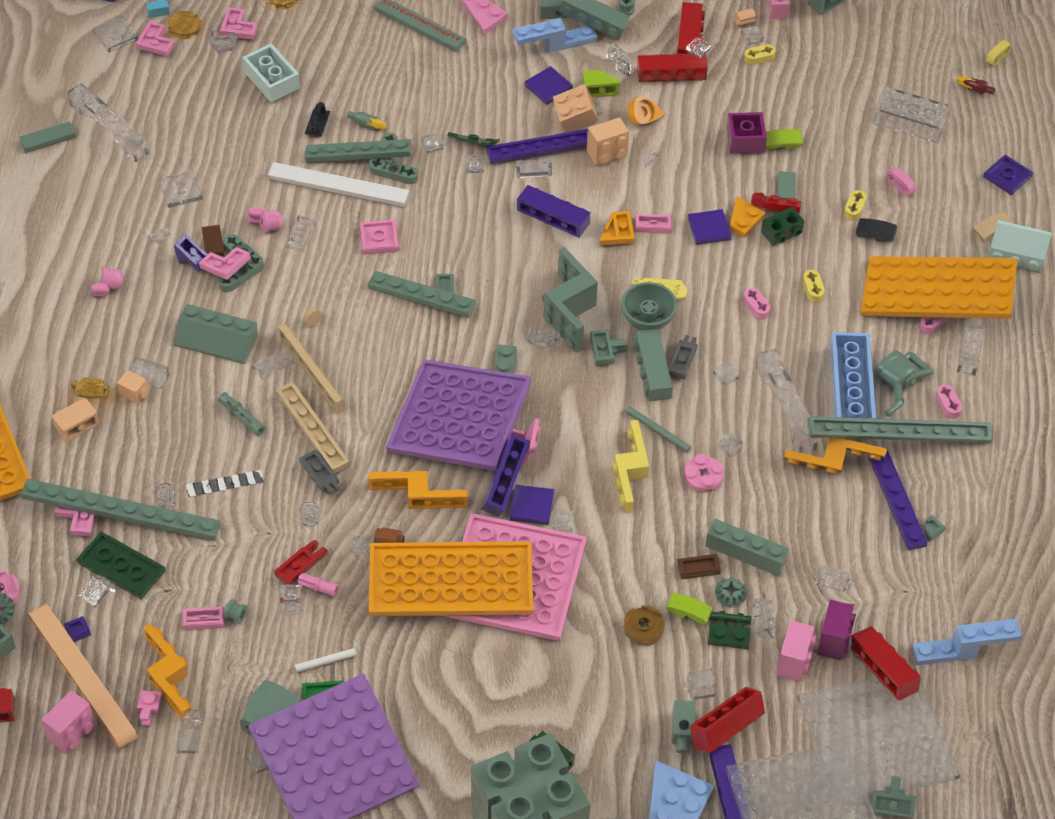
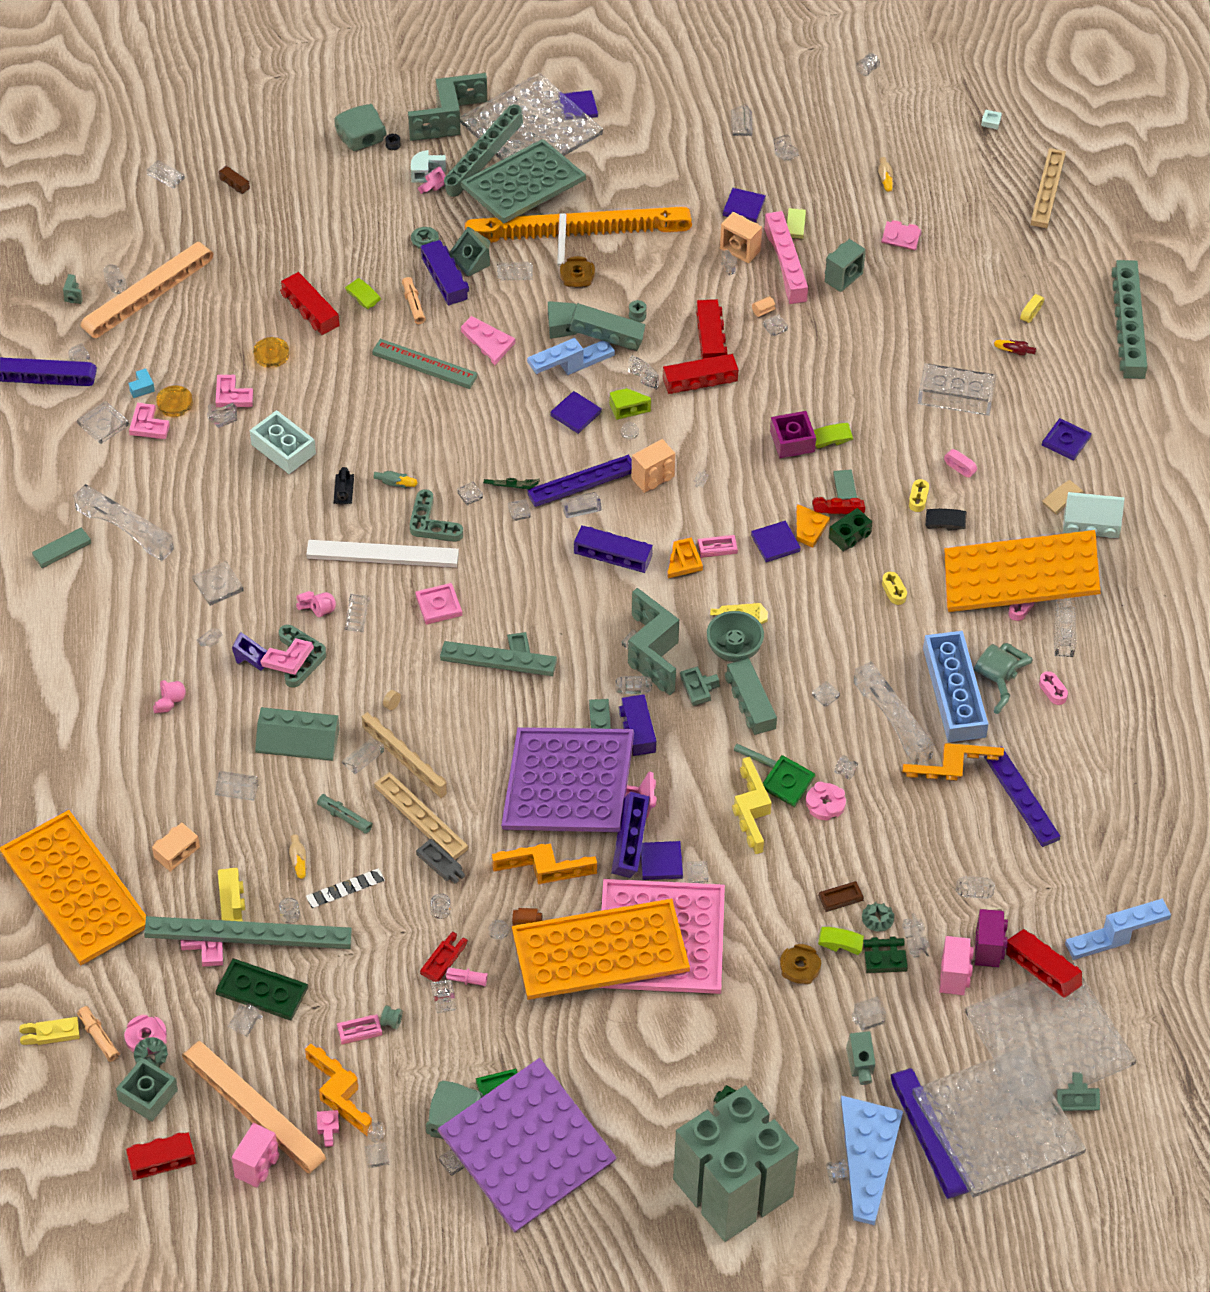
camera: 10 degrees left, 0 degrees up
(77, 629) = (236, 1060): dark purple tile -> none
(90, 388) = (182, 811): clear yellow tile -> none
(114, 472) = (230, 891): none -> light yellow bracket
(132, 386) = (226, 803): light nougat brick -> none
(187, 446) = (298, 856): none -> tan piece
(213, 240) = (267, 633): reddish brown tile -> none
(325, 660) = (492, 1051): white bar -> none
(358, 150) = (395, 514): sand green plate -> none
(539, 370) = (637, 717): none -> dark purple brick
(575, 108) = (611, 435): light nougat brick -> none
(643, 111) = (681, 426): light orange piece -> none
(671, 448) = (788, 780): none -> green tile
(683, 357) = (779, 684): dark grey hinge -> none
(698, 47) = (725, 349): clear plate -> none
(727, 719) = (903, 1044): red brick -> none
(746, 547) = (885, 869): sand green brick -> none
(759, 54) = (788, 345): light yellow beam -> none
(759, 302) = (842, 614): bright pink beam -> none
(899, 429) = (1011, 726): sand green plate -> none
(933, 528) = (1063, 820): sand green tile -> none

